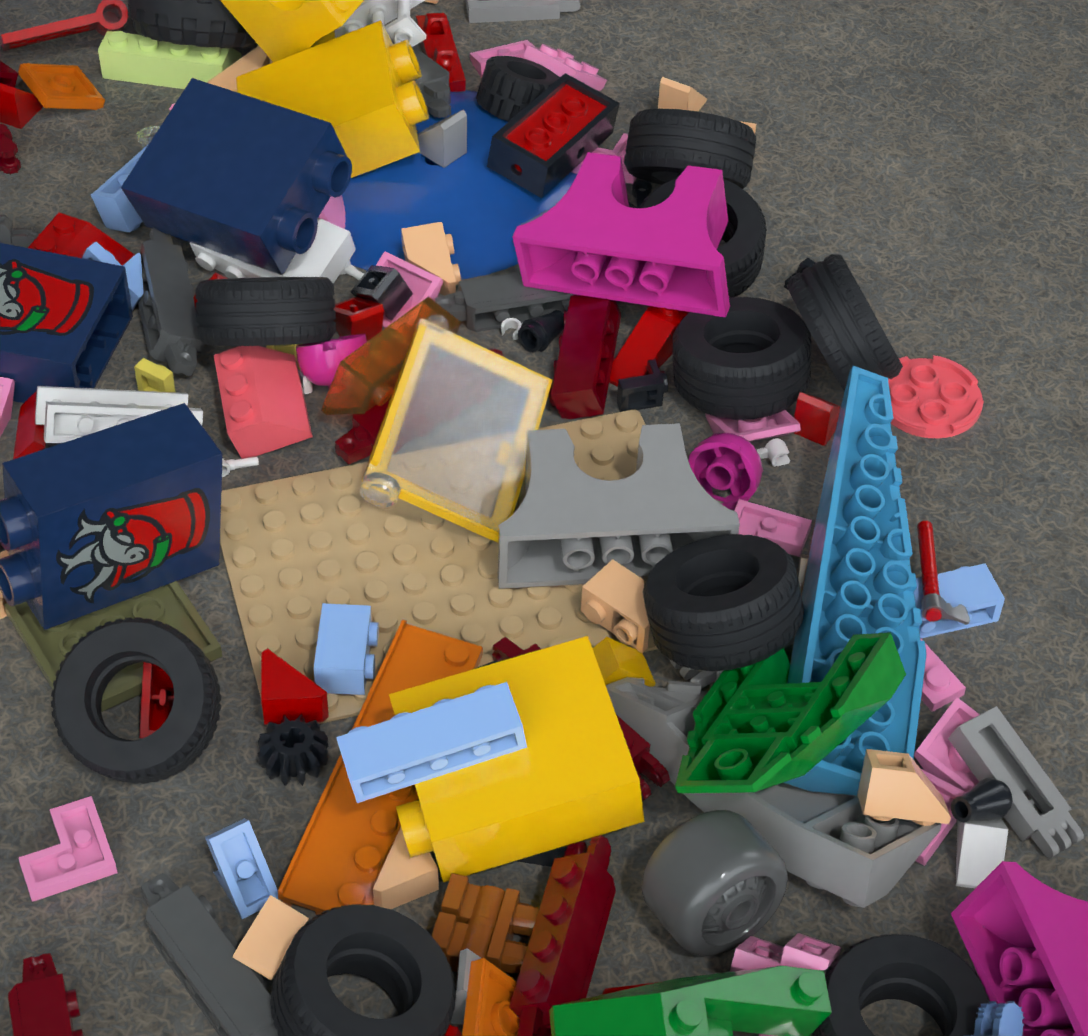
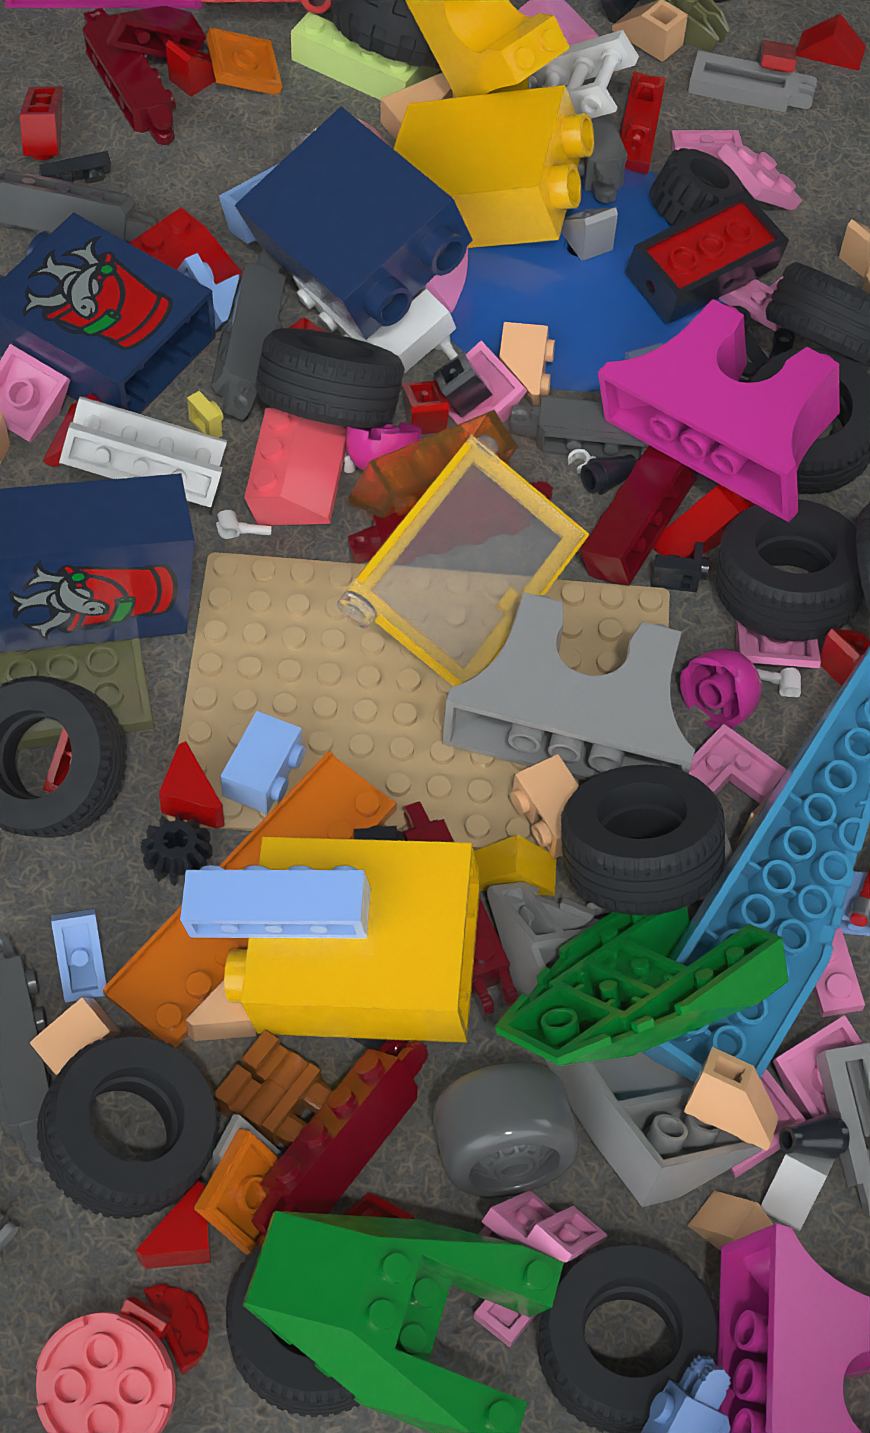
camera: 20 degrees right, 10 degrees up
(935, 898) = (728, 1219): none -> light nougat slope

